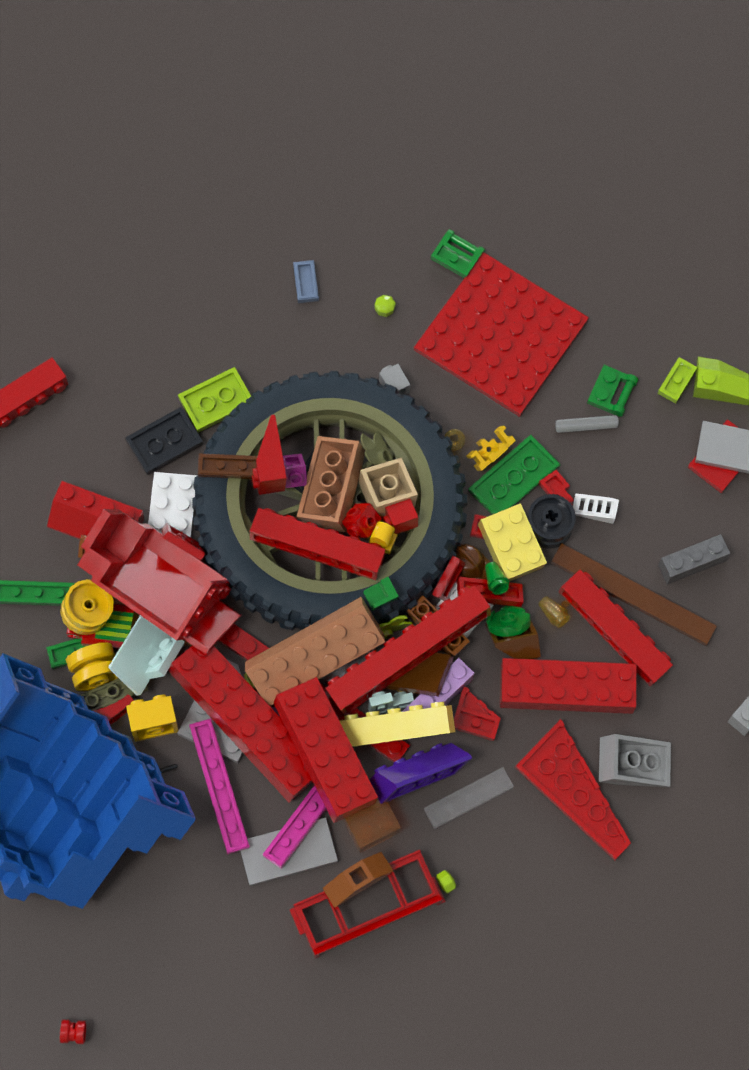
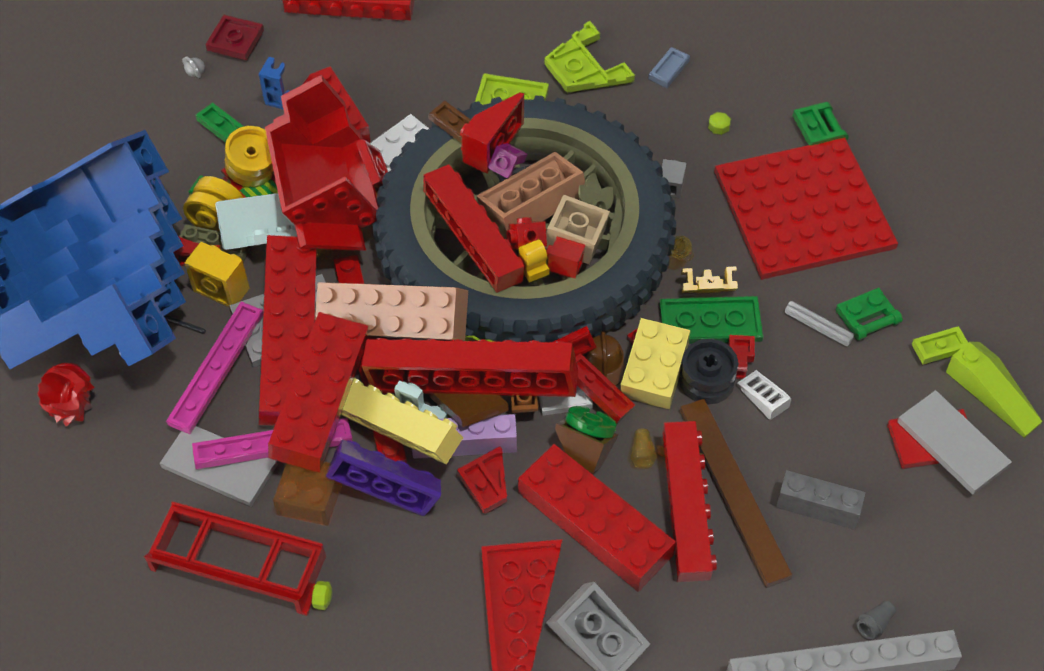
camera: 45 degrees right, 15 degrees down
(33, 530) = (272, 83): none -> blue hinge
(136, 891) = (65, 392): none -> red hair
(164, 440) = (429, 92): black plate -> none
(238, 334) = (578, 69): none -> lime wing
(357, 878) = (242, 518): dark orange slope -> none
(380, 594) = (488, 303): green panel -> none
(468, 798) = (415, 544): clear tile -> none
(496, 579) = (610, 378): green cone -> none

